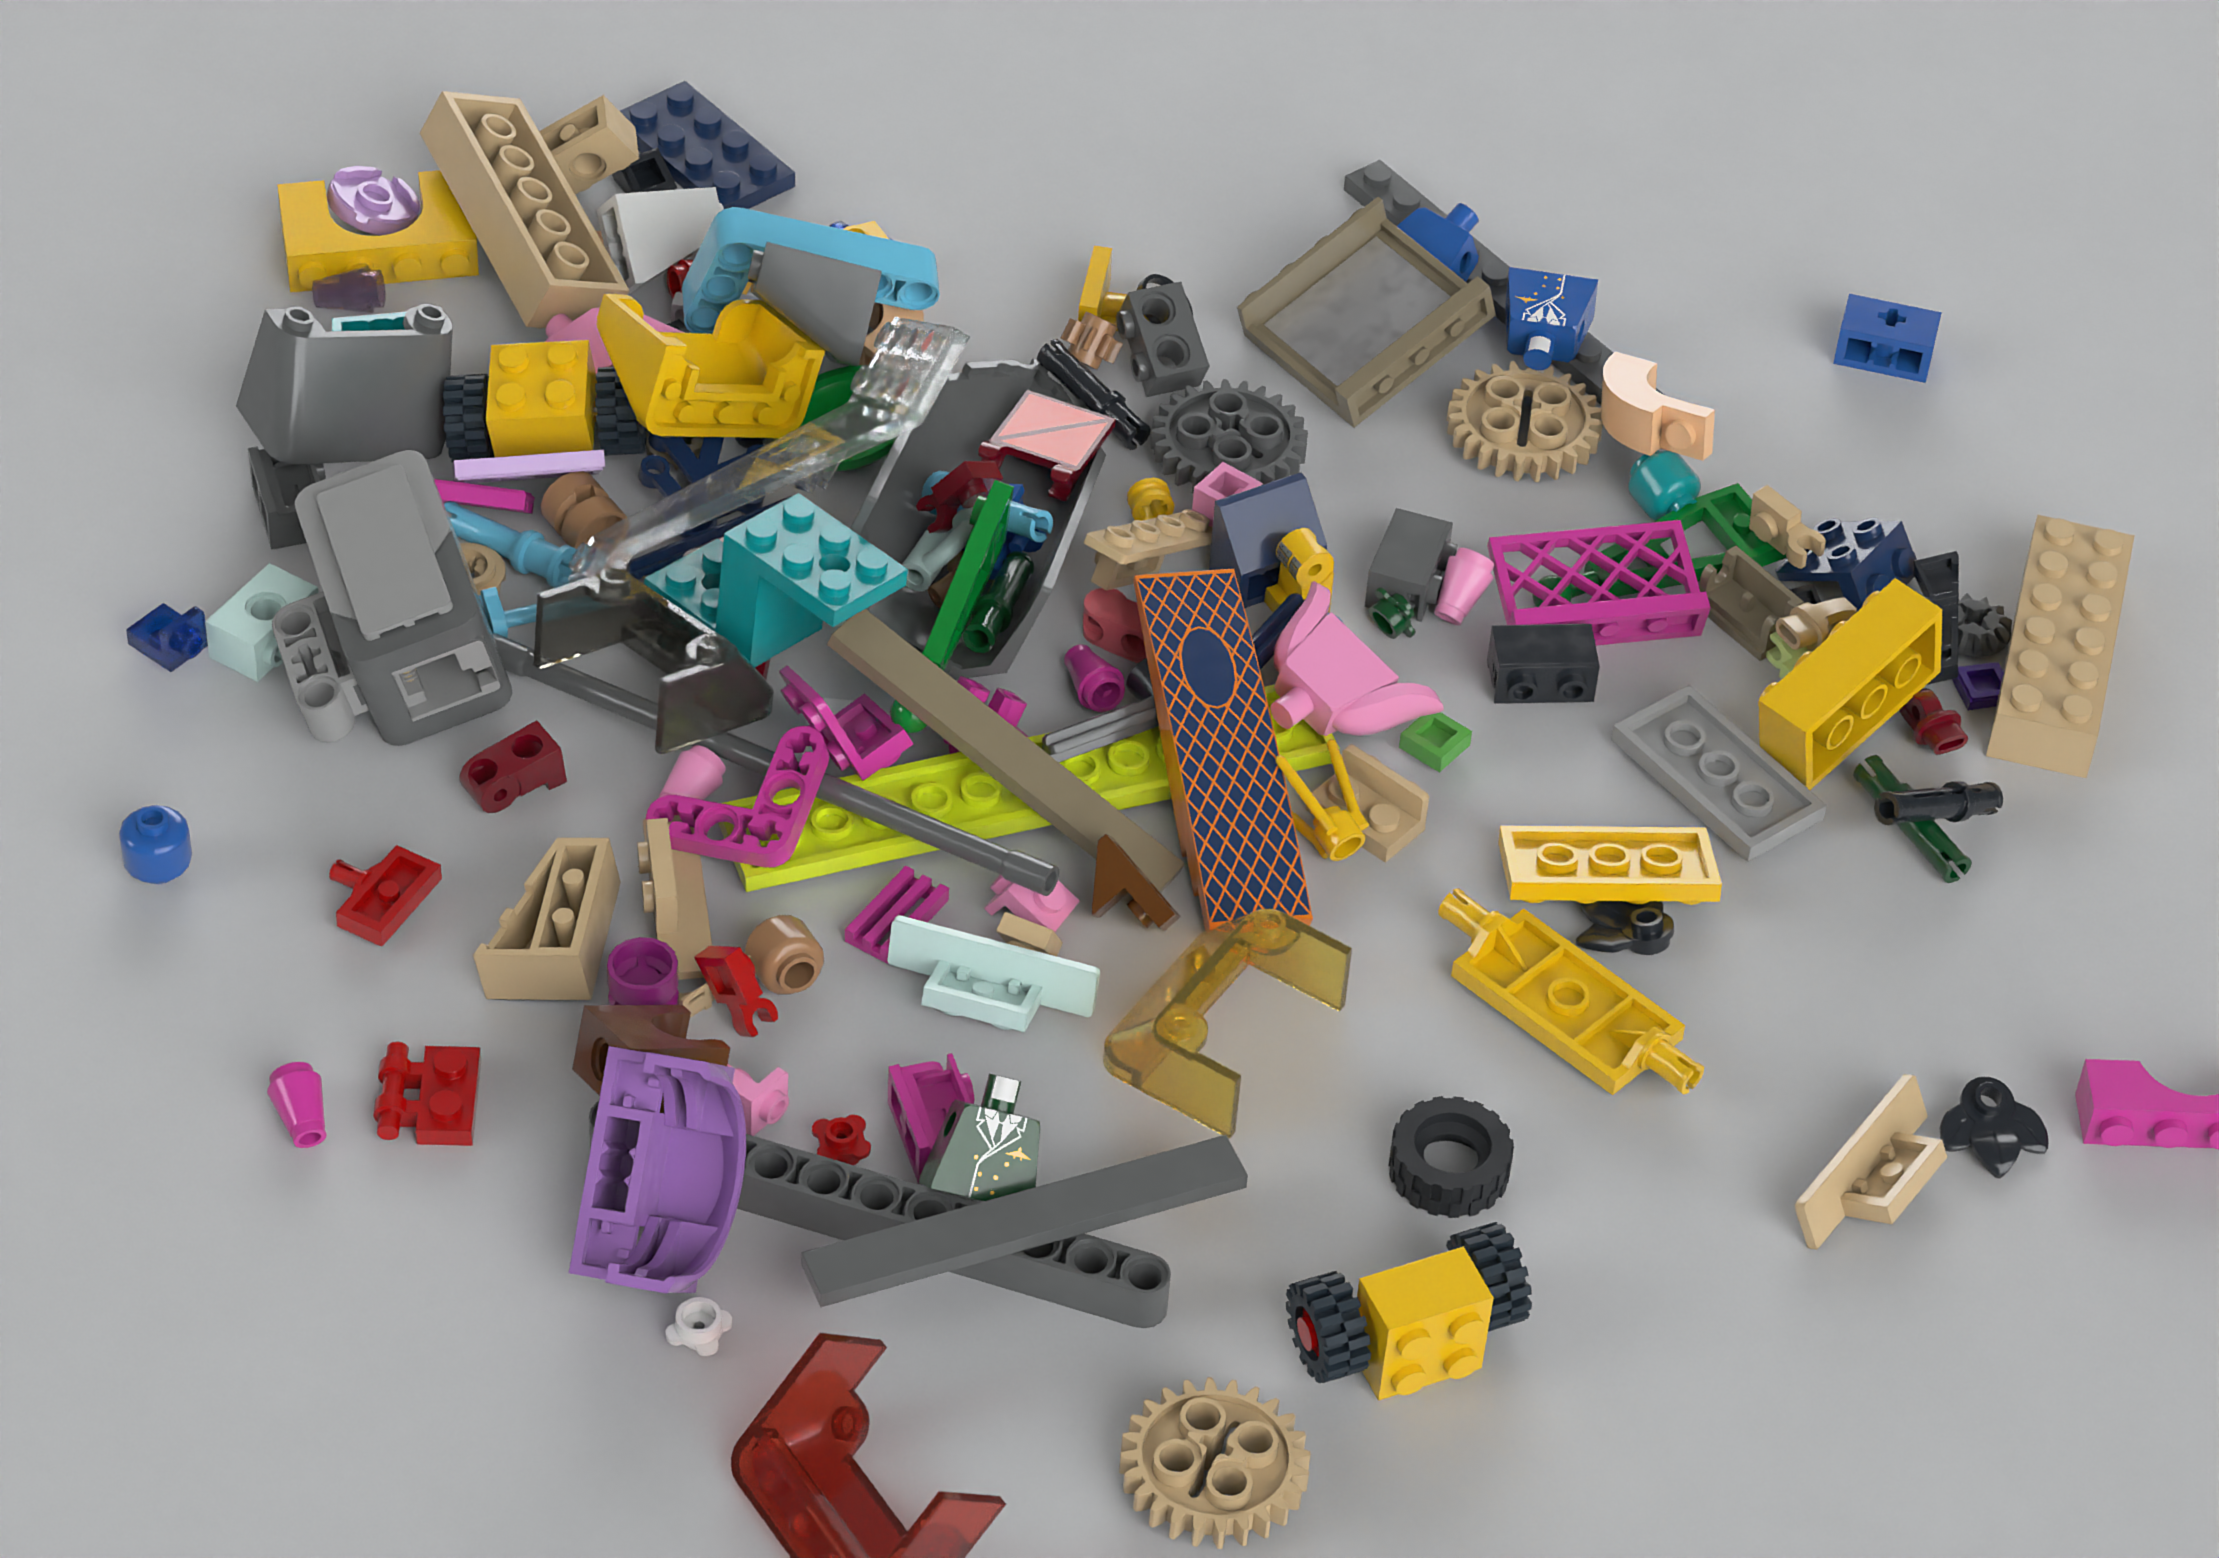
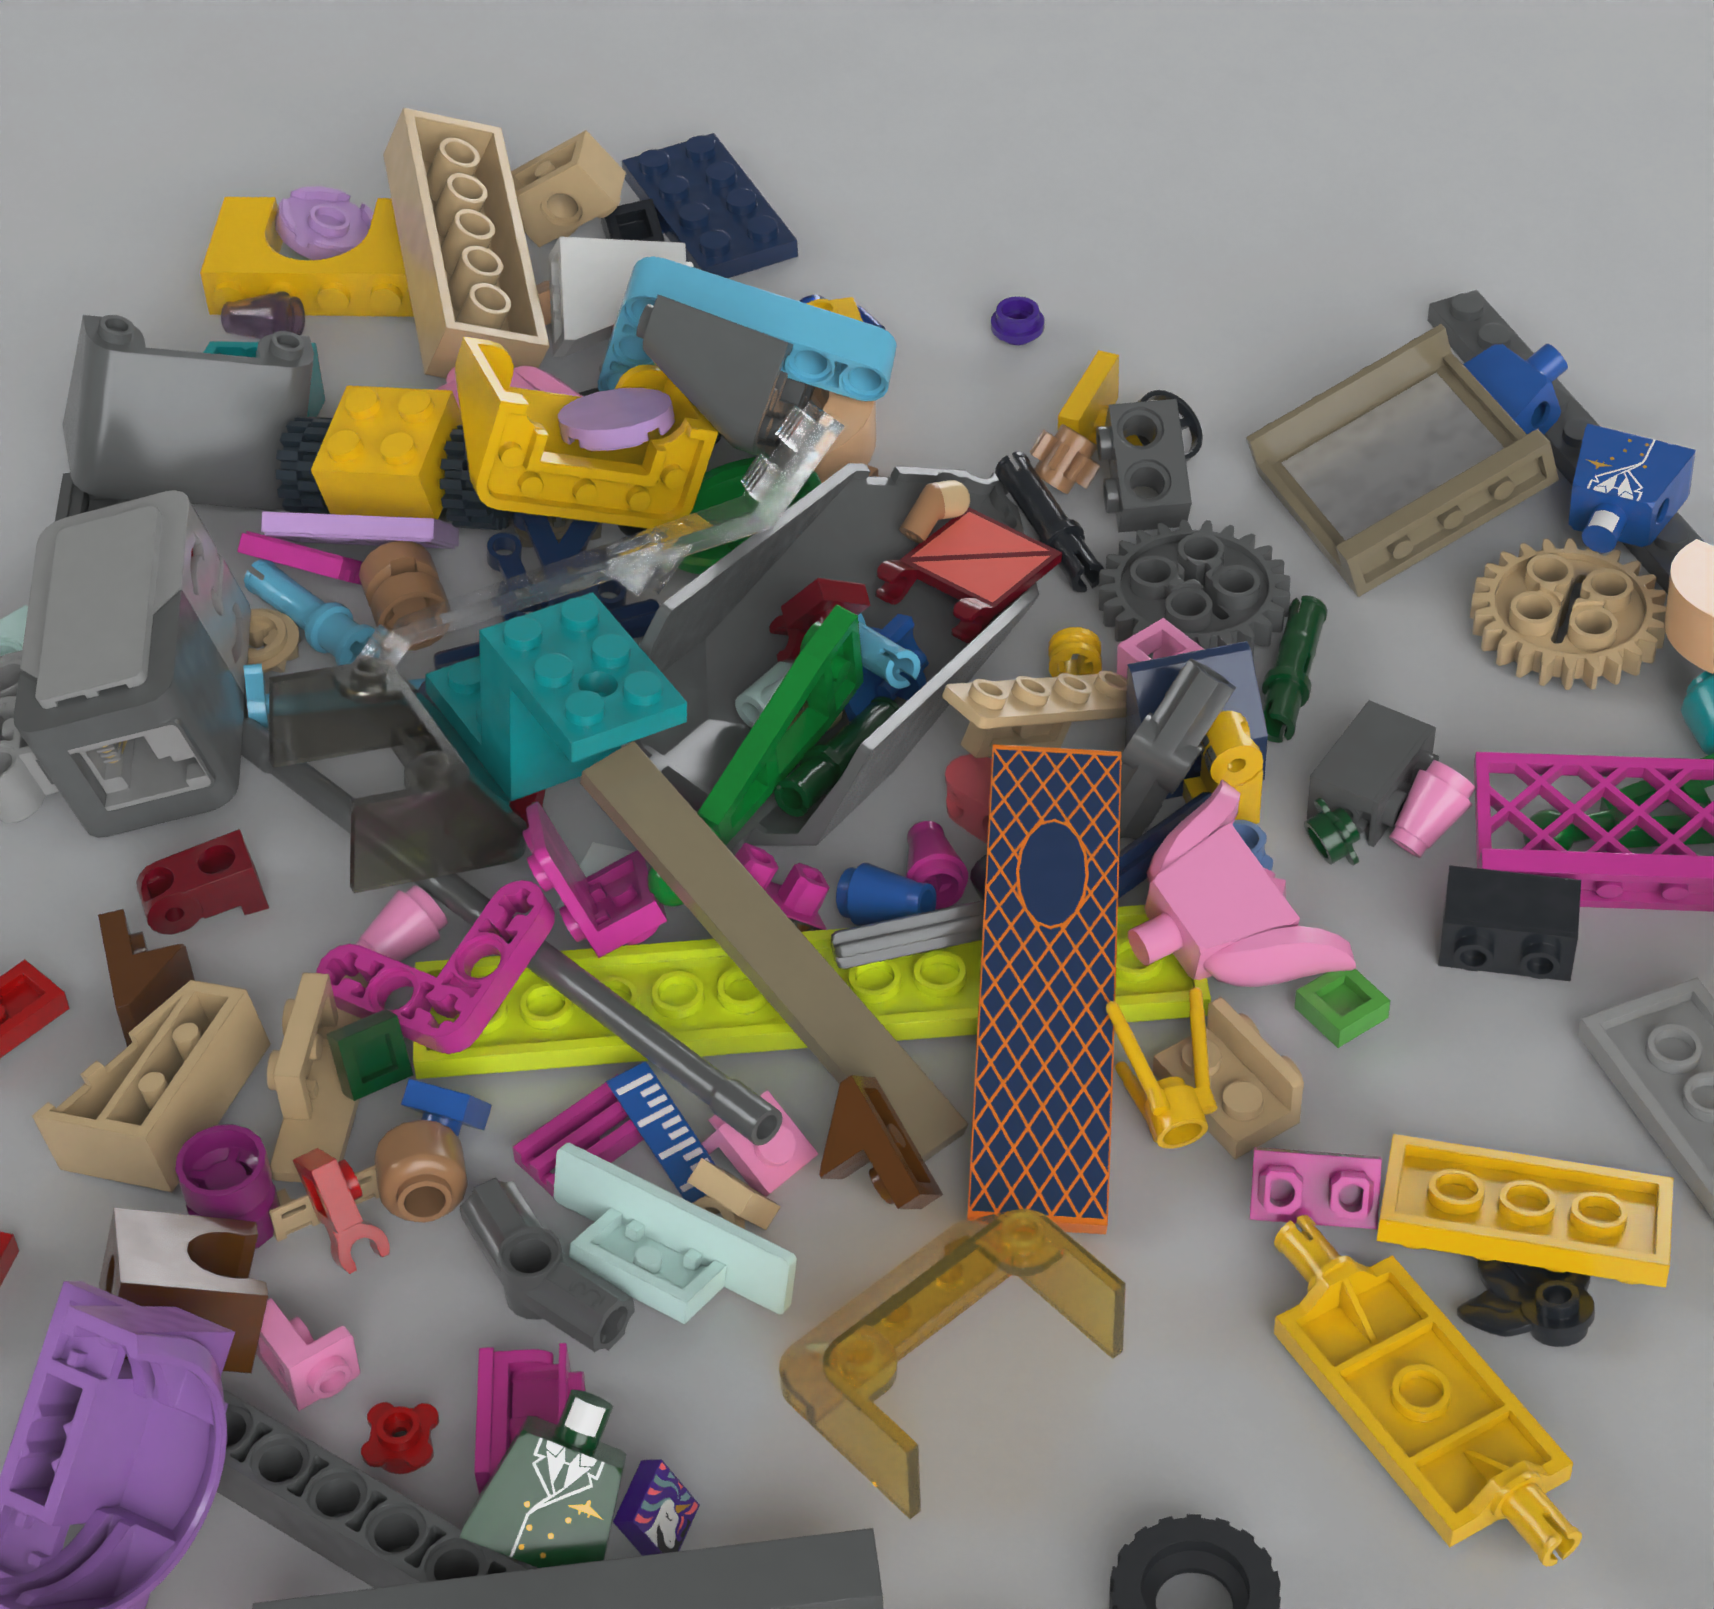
camera: 20 degrees right, 0 degrees up
(494, 850) = (140, 977): none -> reddish brown slope
(713, 875) = (370, 1054): none -> dark green tile
(734, 347) = (616, 418): none -> lavender tile
(783, 902) = (446, 1106): none -> blue plate
(901, 1011) = (536, 1273): none -> dark grey piece
(954, 897) = (661, 1126): none -> blue sticker
(1006, 389) = (935, 502): none -> medium nougat arm
(1008, 225) = (1017, 320): none -> dark purple plate
(1056, 1154) = (656, 1510): none -> dark purple tile
(1063, 705) = (877, 895): none -> blue cone
(1263, 554) = (1168, 744): none -> dark grey piece
(1323, 483) = (1288, 683): none -> dark green pin
(1471, 866) = (1323, 1185): none -> dark pink hips

